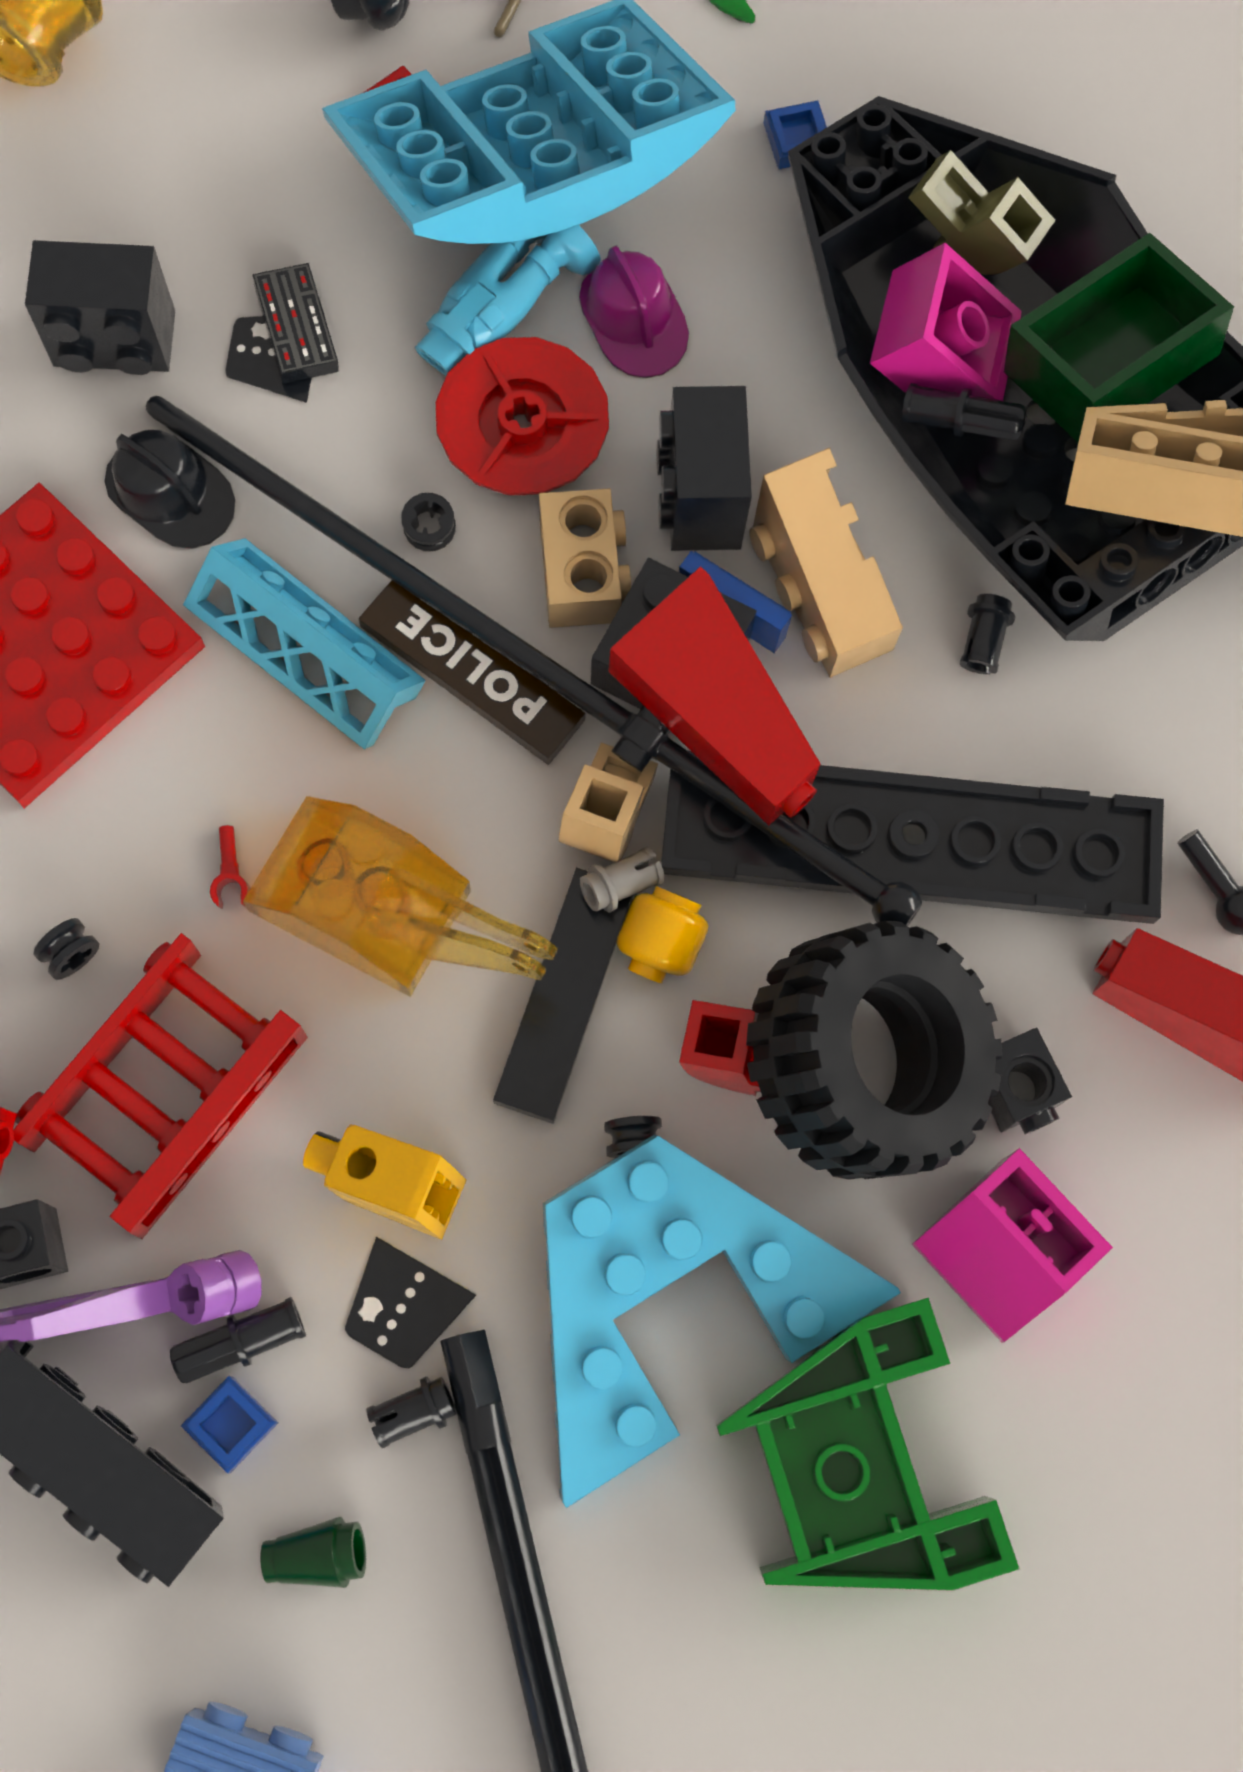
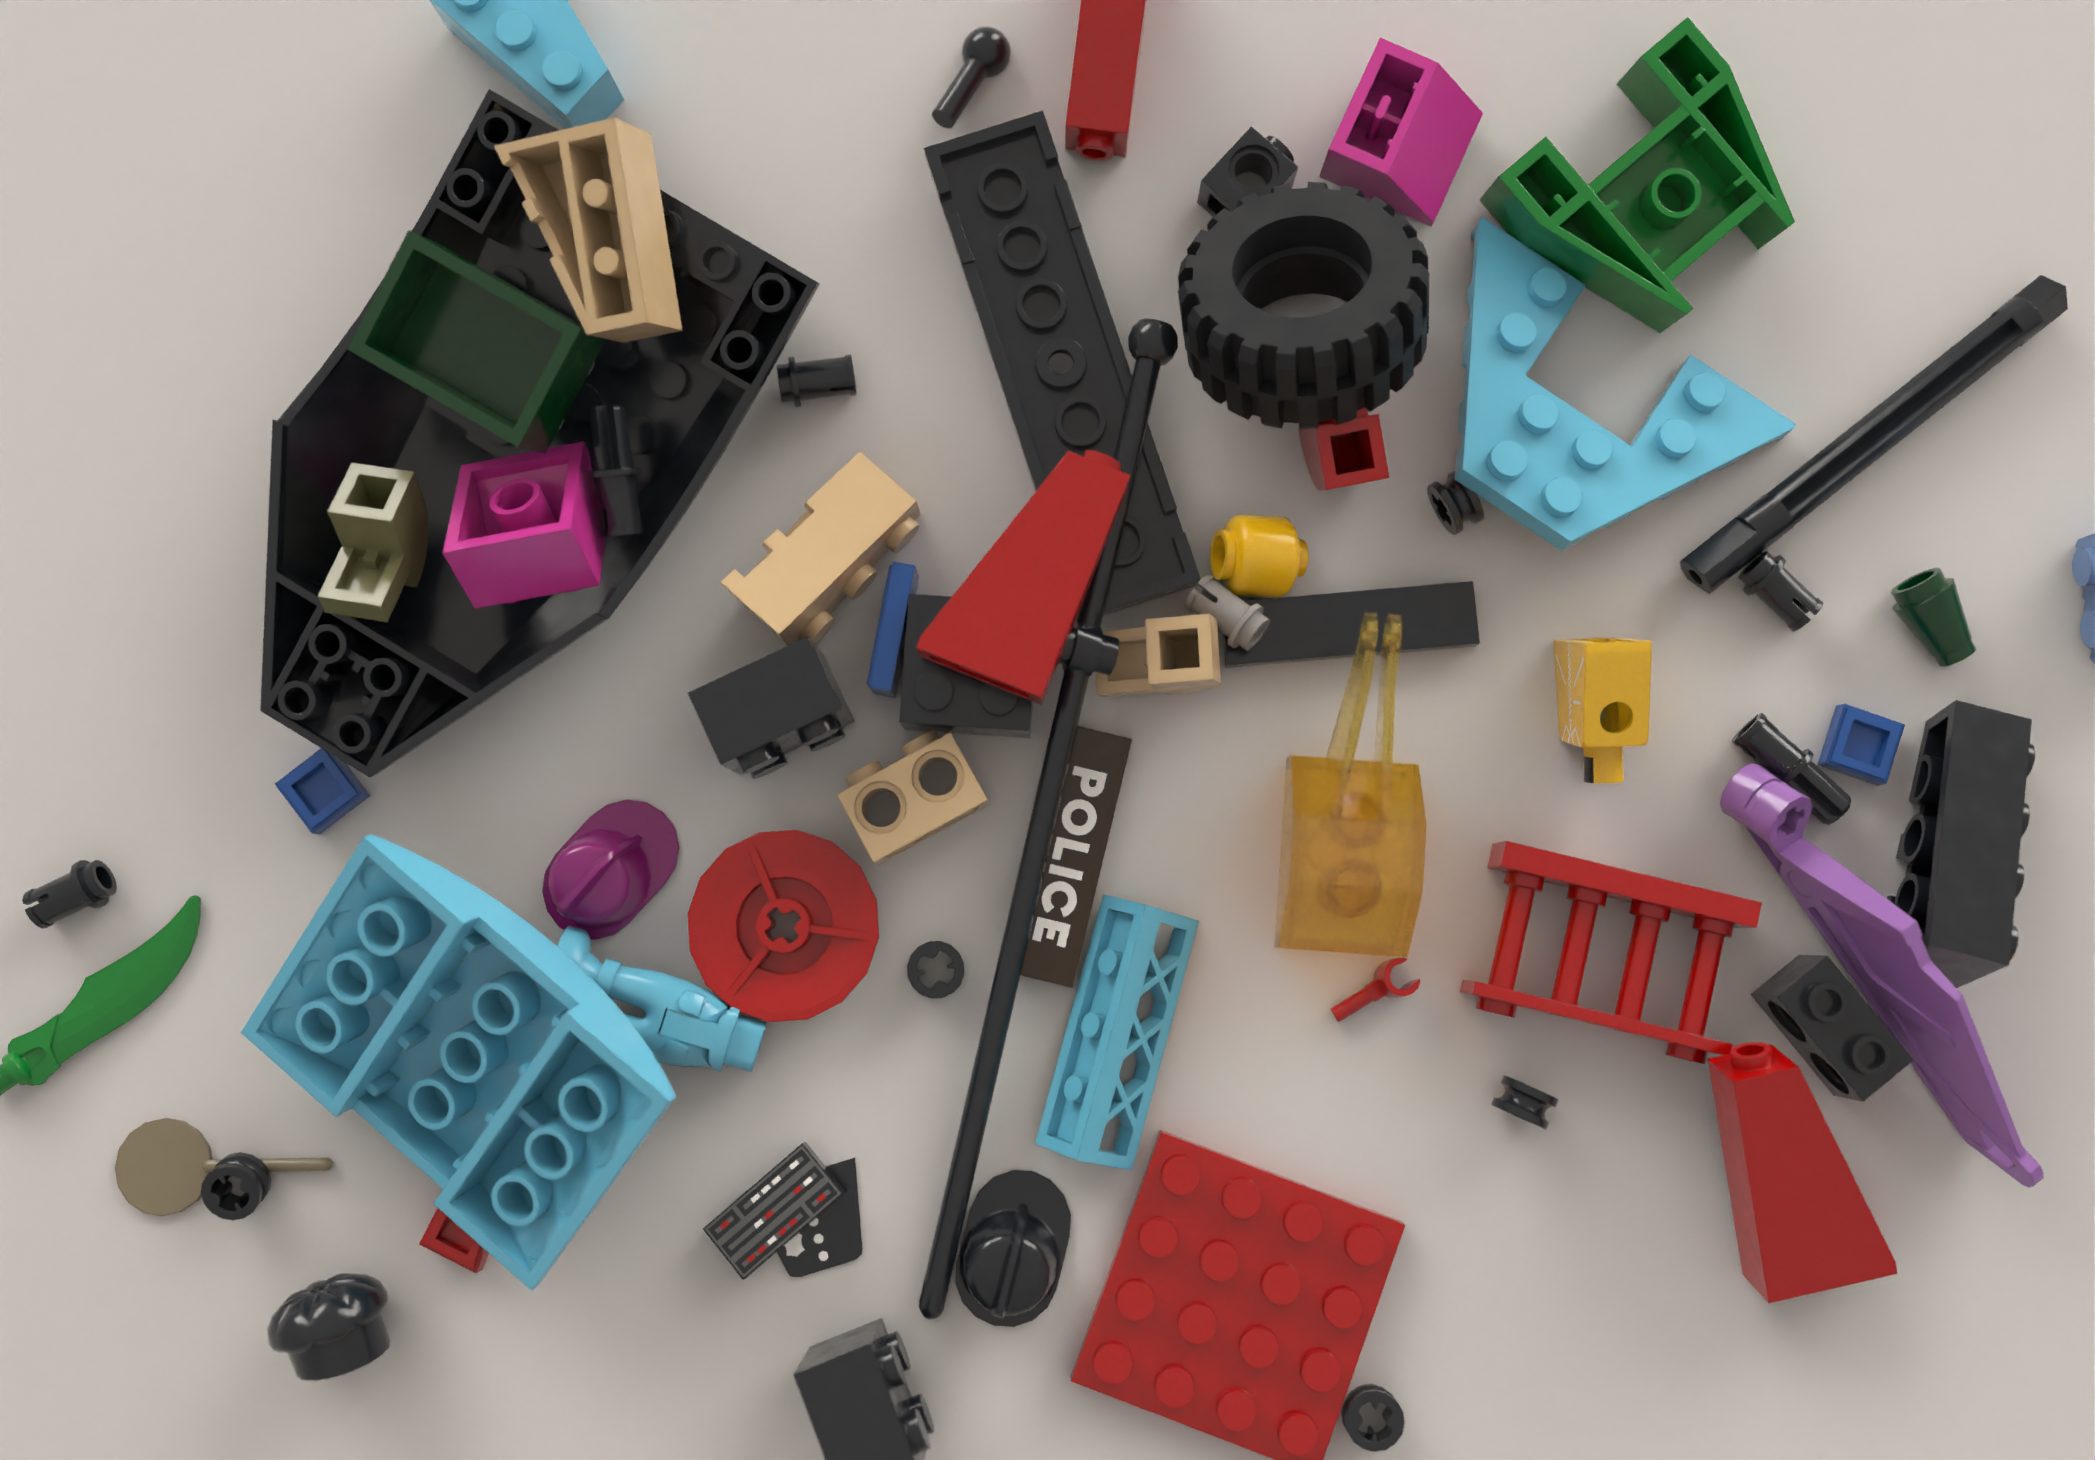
camera: 105 degrees left, 10 degrees up
(402, 1305) = (1691, 643): black sticker -> none

